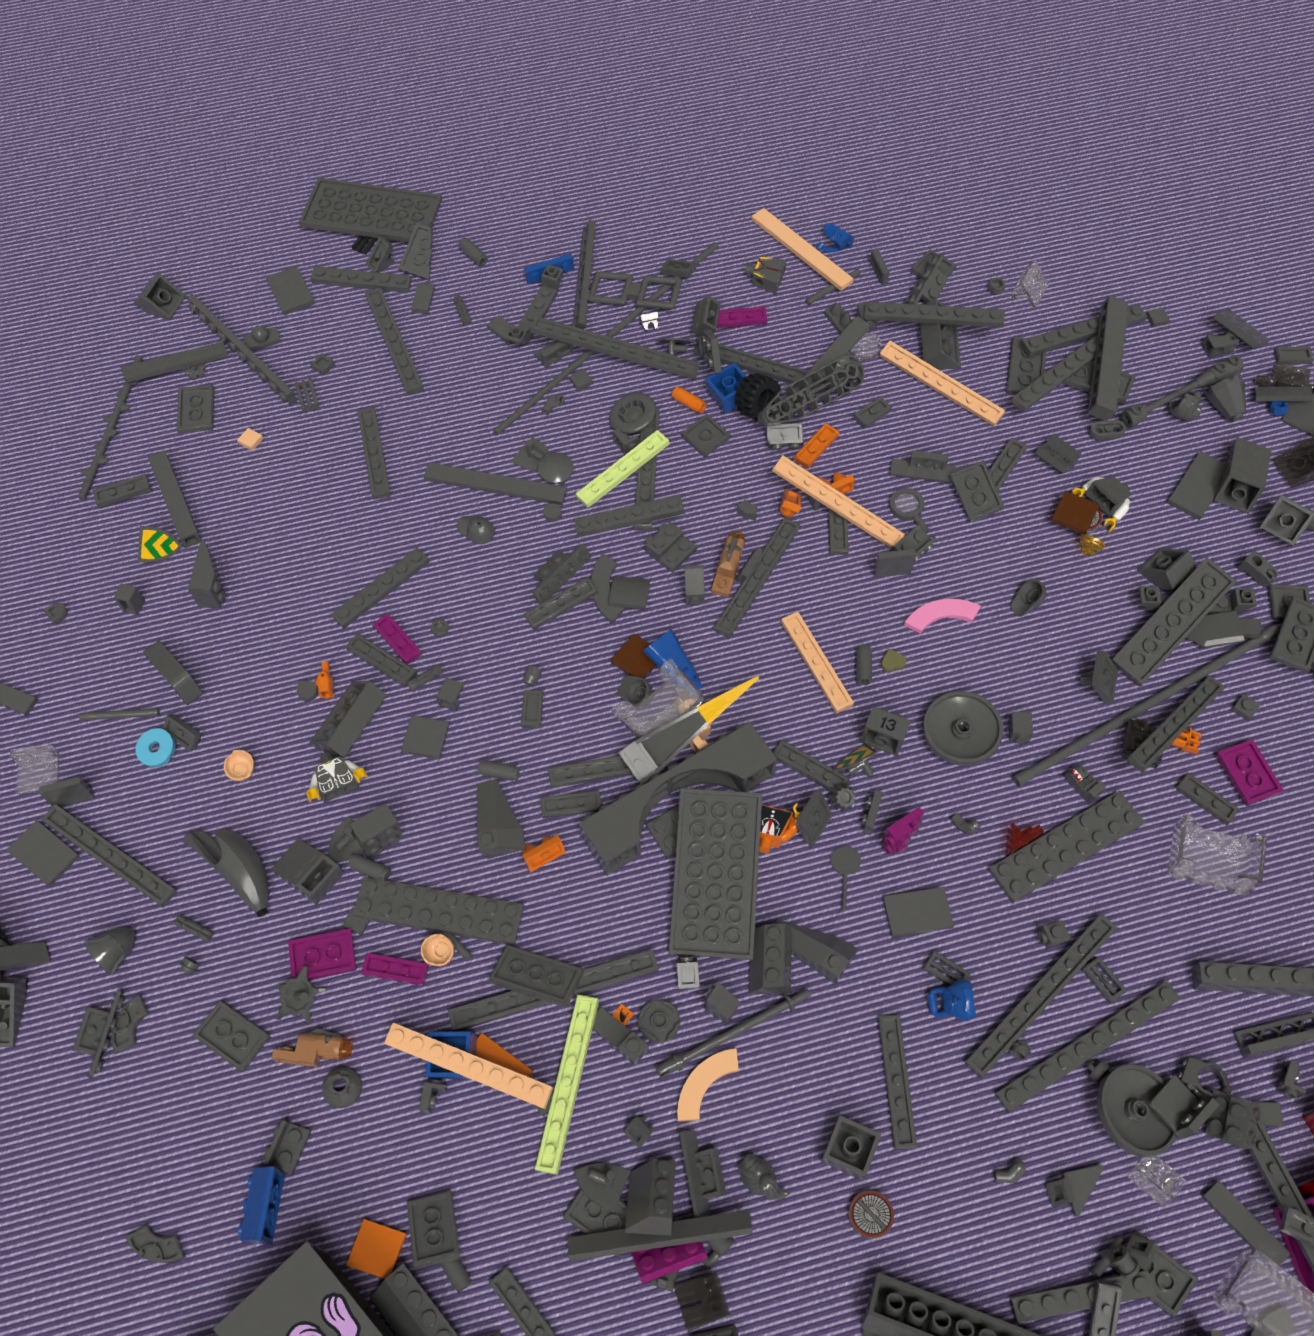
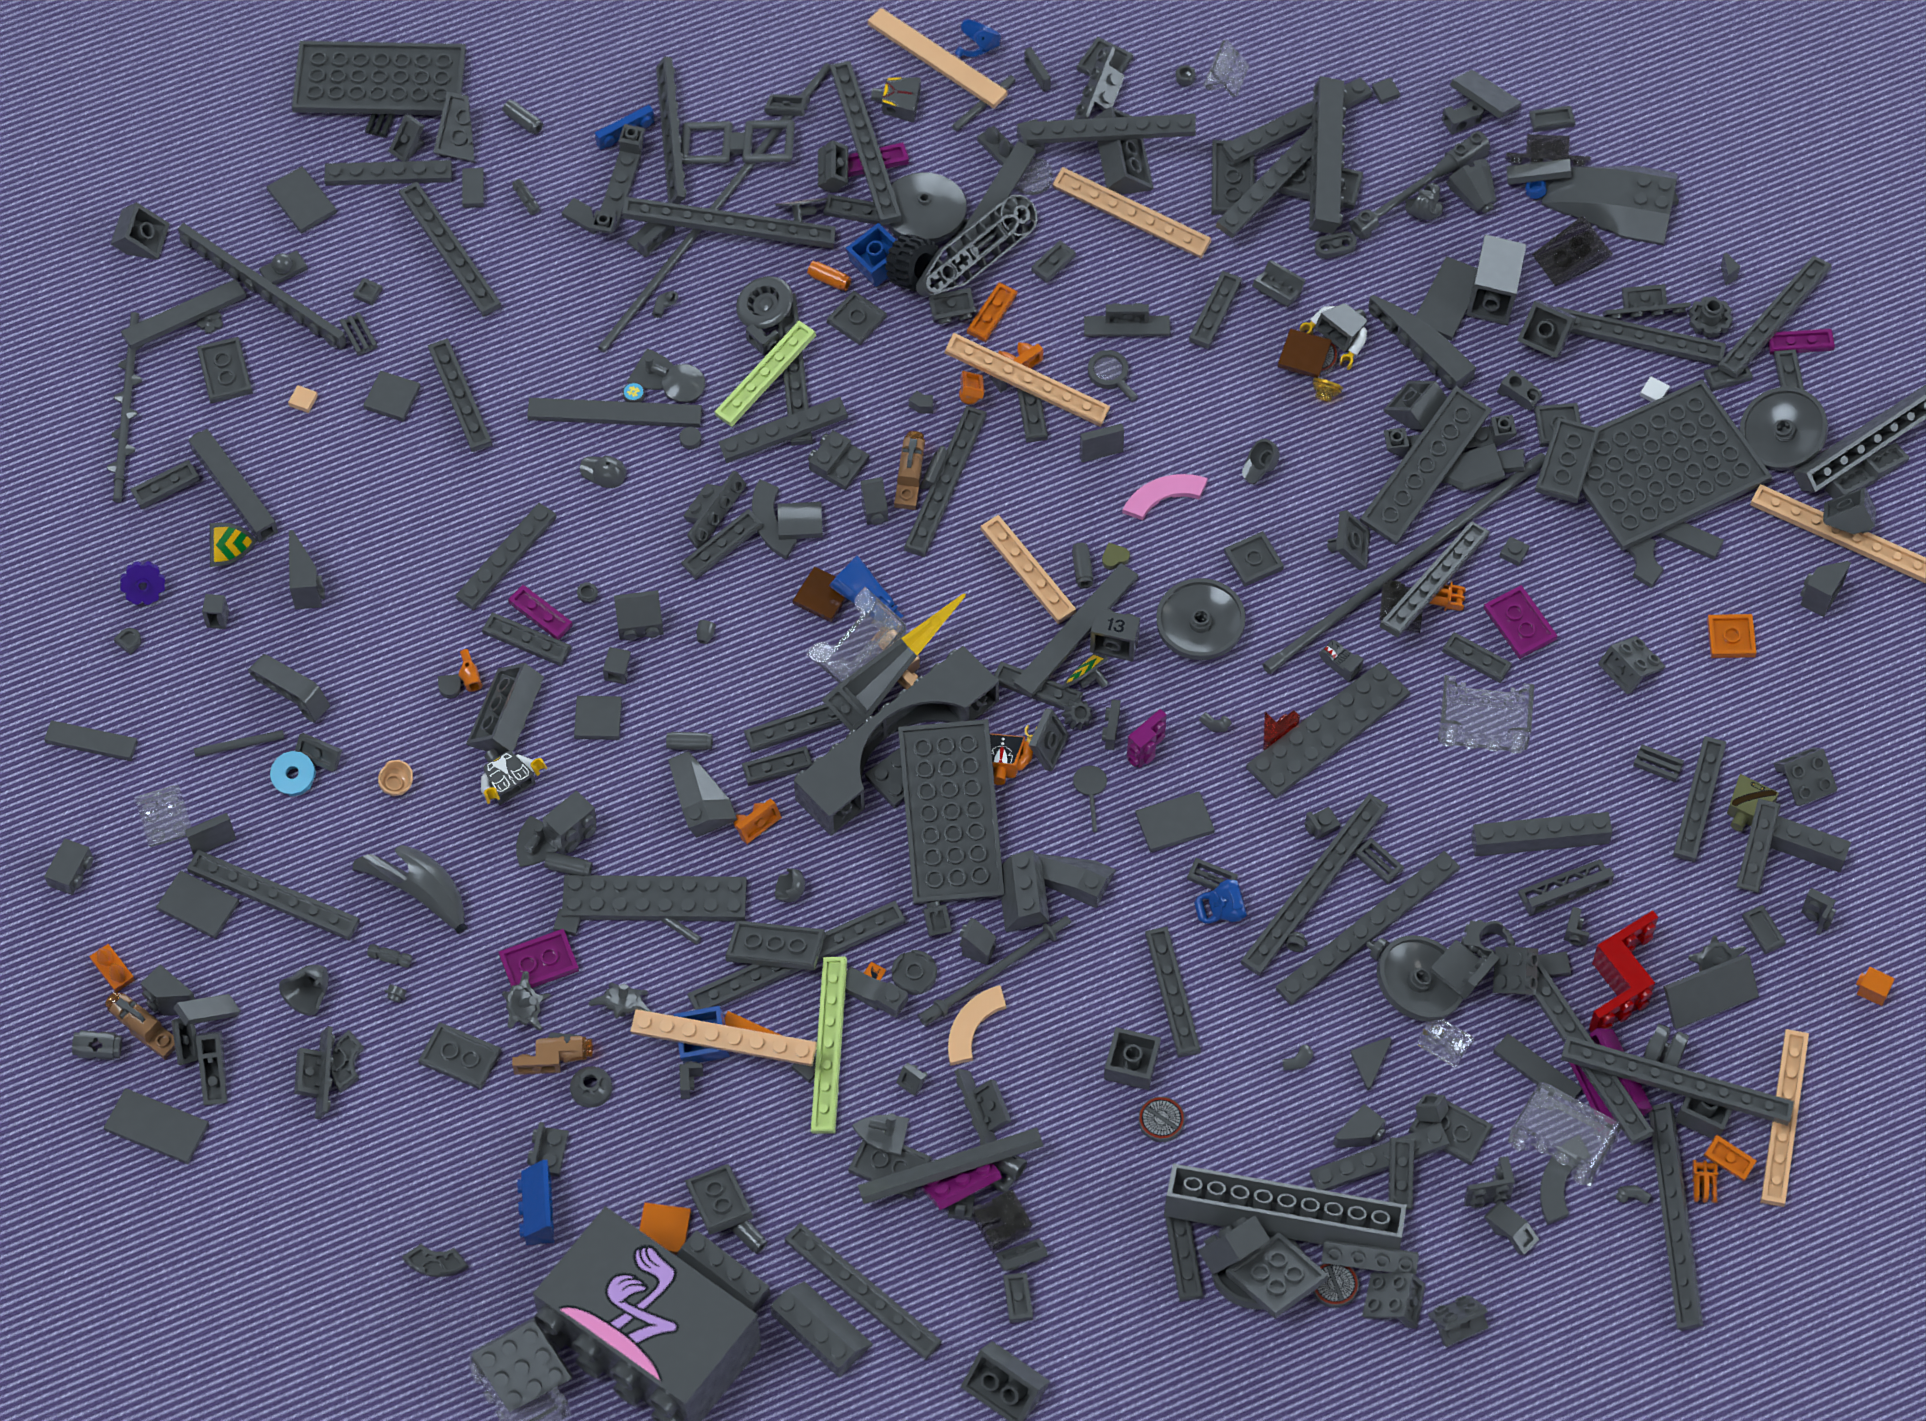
camera: 10 degrees left, 0 degrees up
(76, 567) = (142, 583): none -> dark purple plant
(307, 871) = (501, 877): dark grey slope -> none
(320, 446) = (391, 396): none -> dark grey tile
(386, 1007) = (621, 999): none -> dark grey piece
(395, 969) = (621, 963): magenta plate -> none
(425, 677) = (582, 651): dark grey axle -> none
(437, 950) = (663, 935): light nougat hair -> none
(477, 653) = (638, 615): none -> dark grey slope
(514, 470) = (633, 392): none -> tile
(532, 709) = (713, 668): dark grey tile -> none
(560, 920) = (790, 886): none -> dark grey hair
(580, 380) = (692, 268): dark grey tile -> none
(634, 689) = (826, 629): dark grey cap -> none
(649, 318) = (762, 177): tile -> none
(651, 1198) = (936, 1133): dark grey slope -> none
(708, 348) = (844, 208): dark grey plate -> none
(735, 304) = (865, 143): none -> dark grey plate
(760, 1177) = (1043, 1102): dark grey hair -> none
(774, 355) = (928, 206): none -> dark grey dish
(849, 722) = (1074, 630): none -> dark grey tile
(917, 540) = (1123, 412): dark grey bracket -> none
(977, 491) = (1188, 343): dark grey tile -> none
(1014, 681) = (1253, 558): none -> dark grey tile
(1020, 727) = (1265, 609): dark grey brick -> none
(1060, 1192) = (1349, 1068): dark grey plate -> none
(1067, 1261) = (1361, 1129): none -> dark grey slope
(1118, 1257) = (1408, 1117): dark grey piece -> none
(1178, 518) = (1424, 343): none -> dark grey slope

